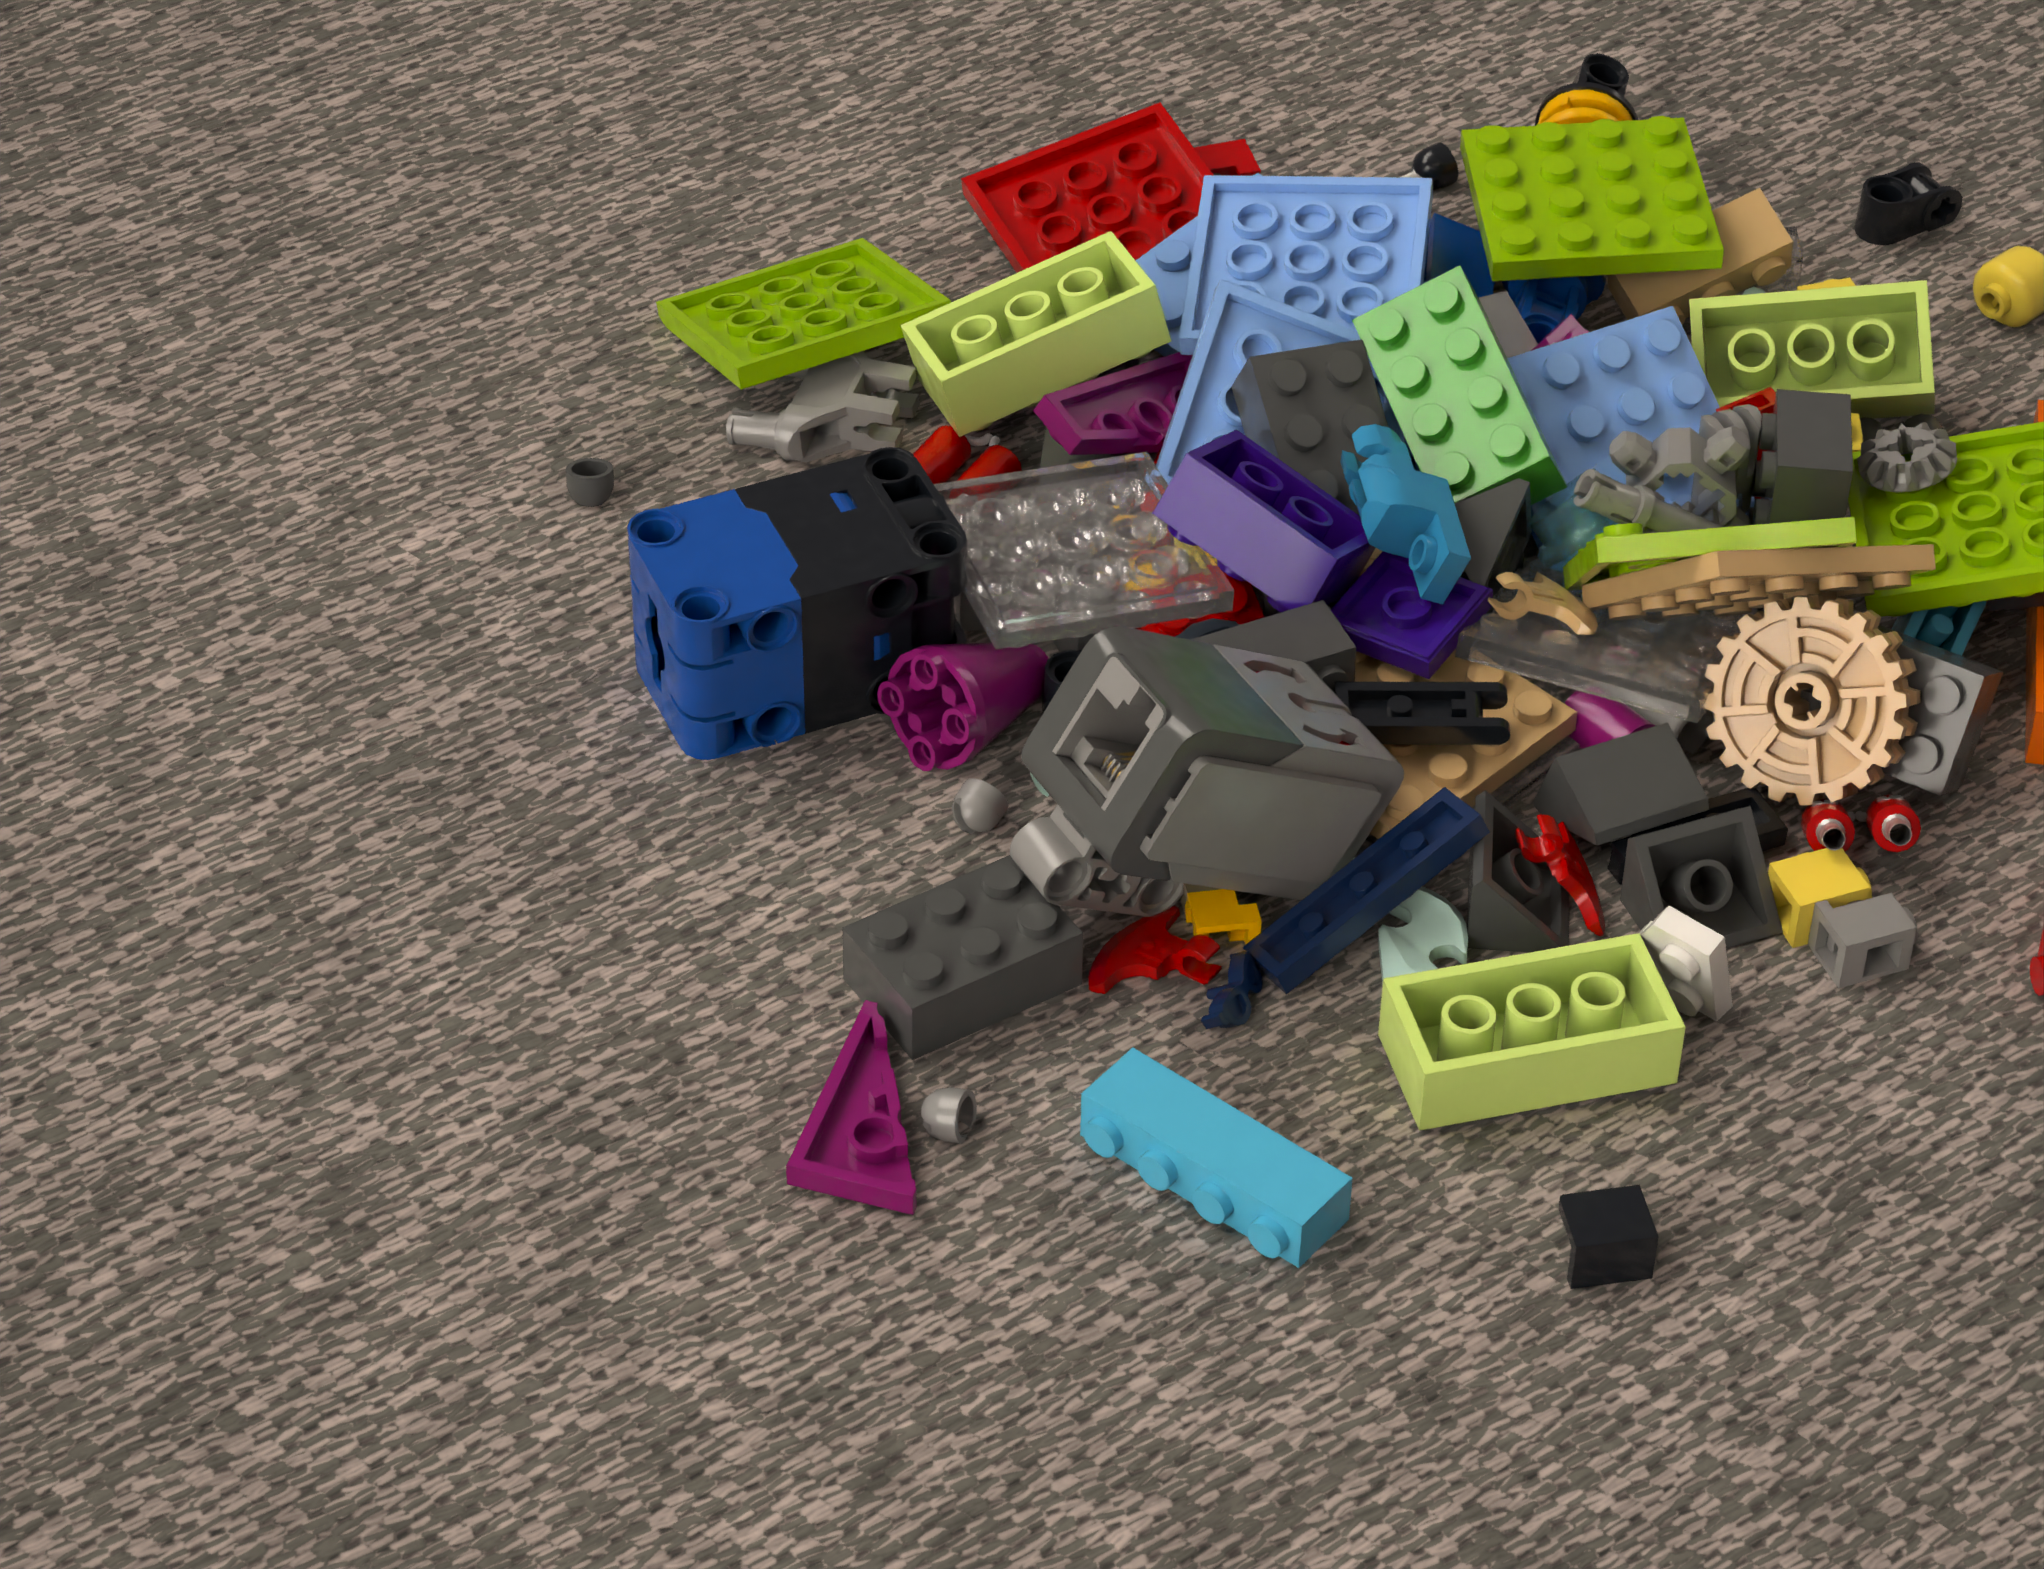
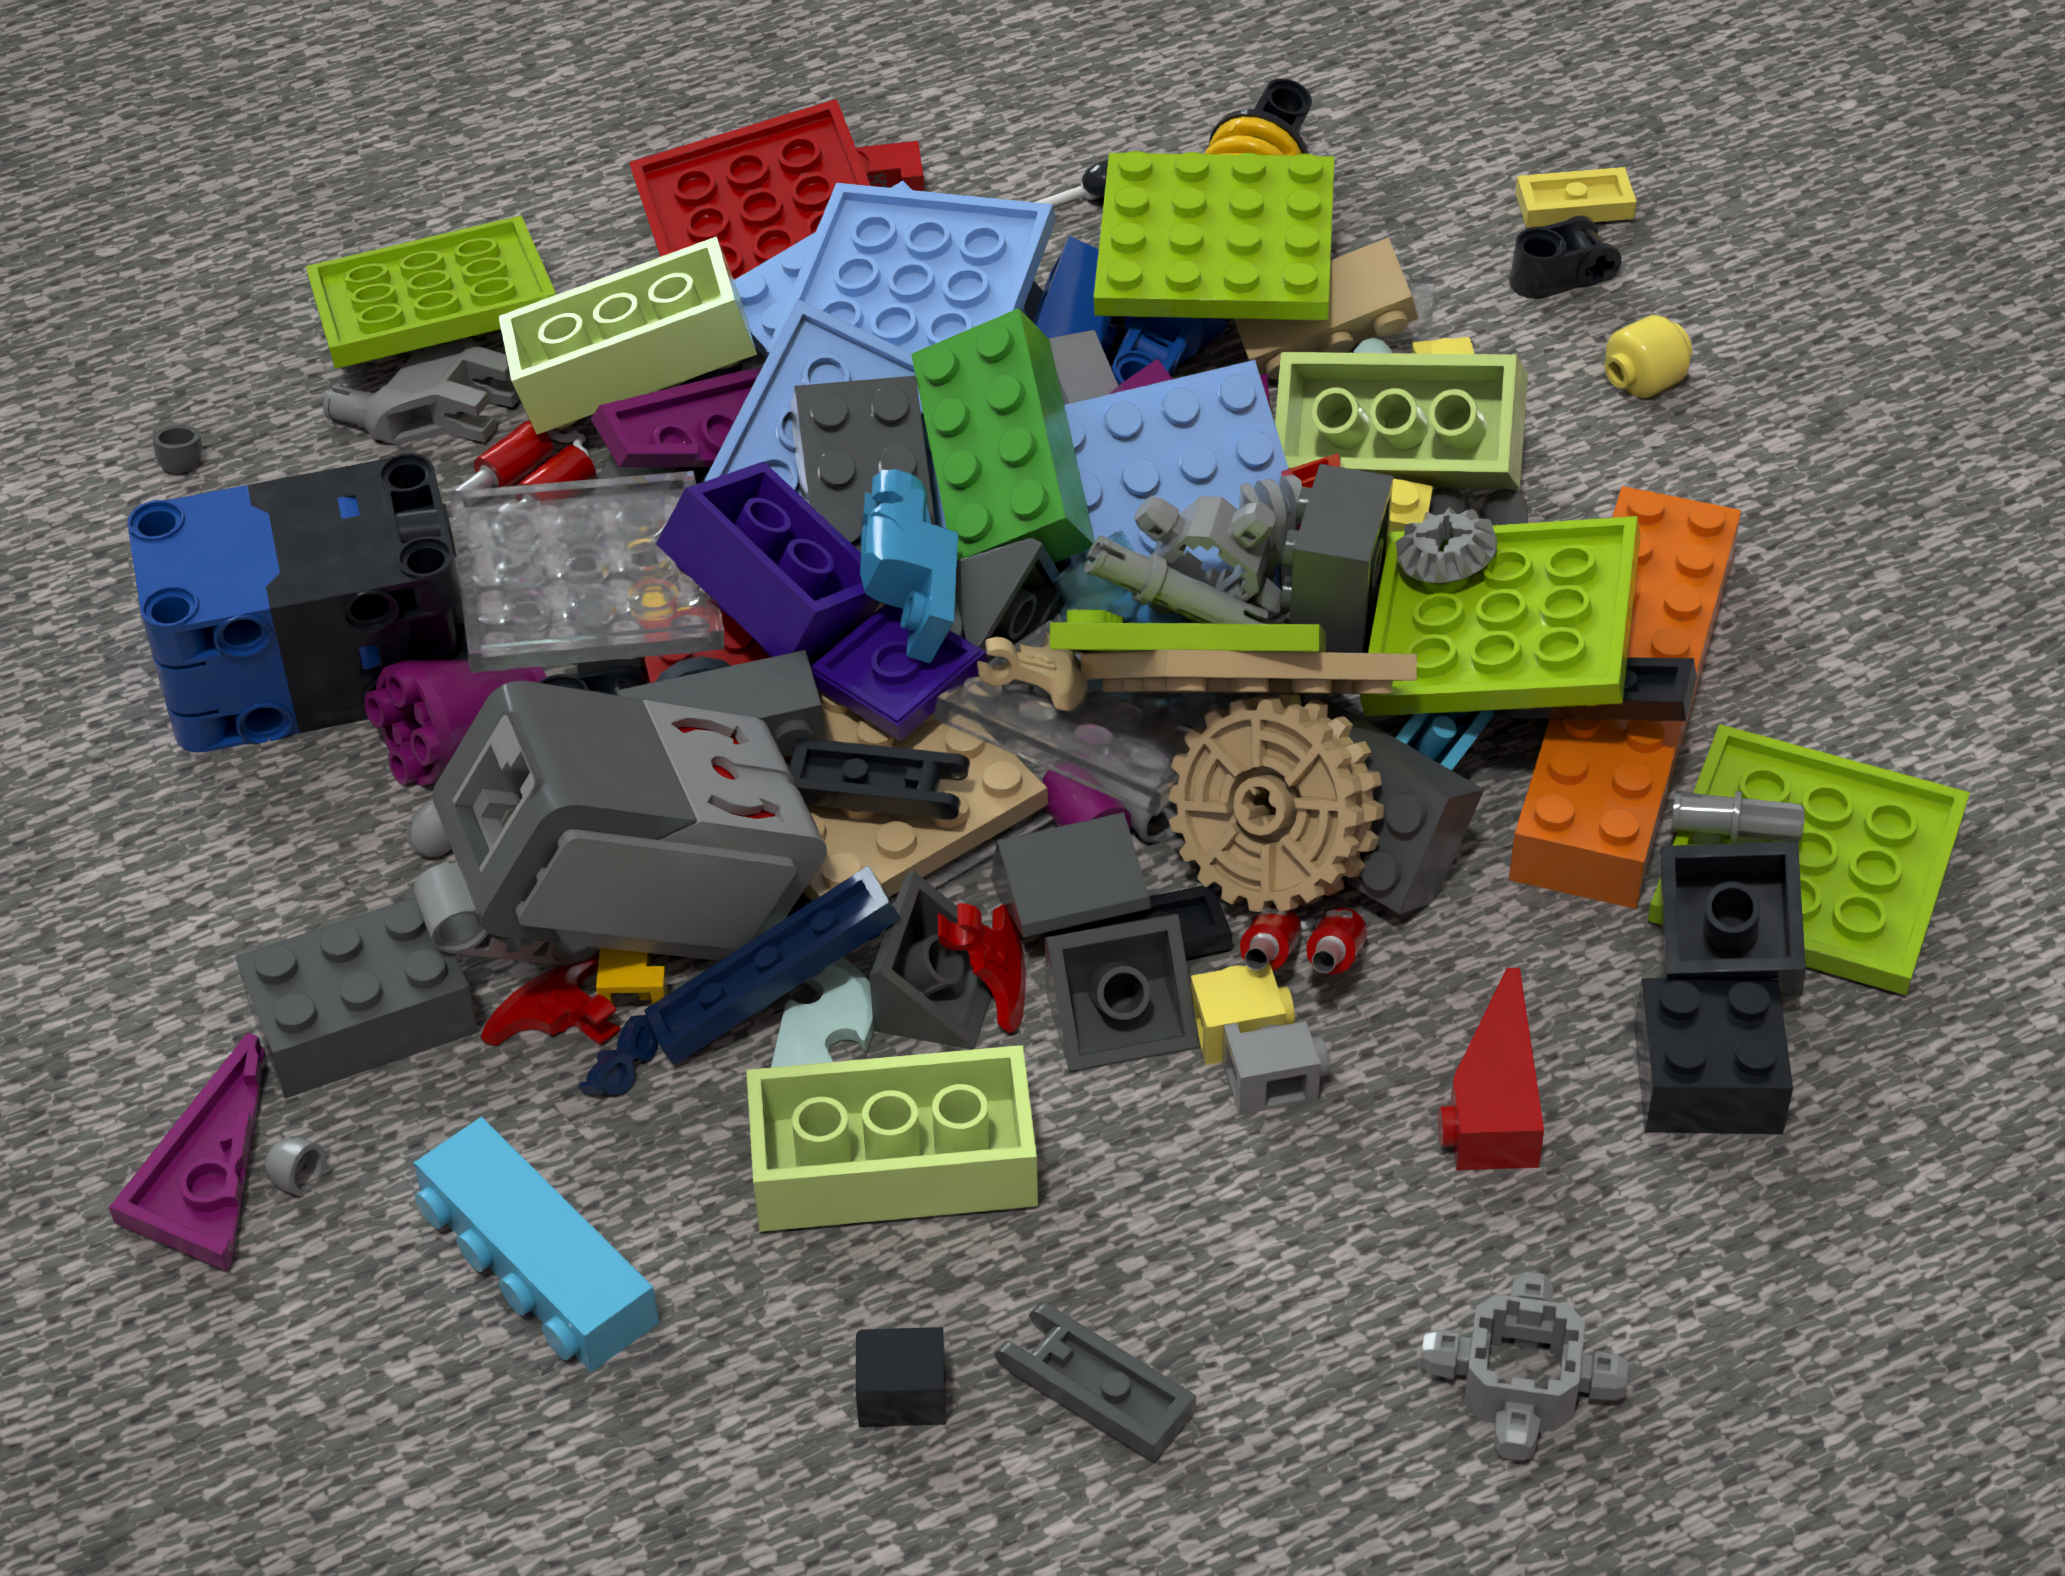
camera: 10 degrees right, 5 degrees up
(1690, 963) = (1073, 1083): white wing -> none
(1788, 1223) = (1101, 1382): none -> dark grey hinge
(1894, 146) = (1563, 195): none -> light yellow plate

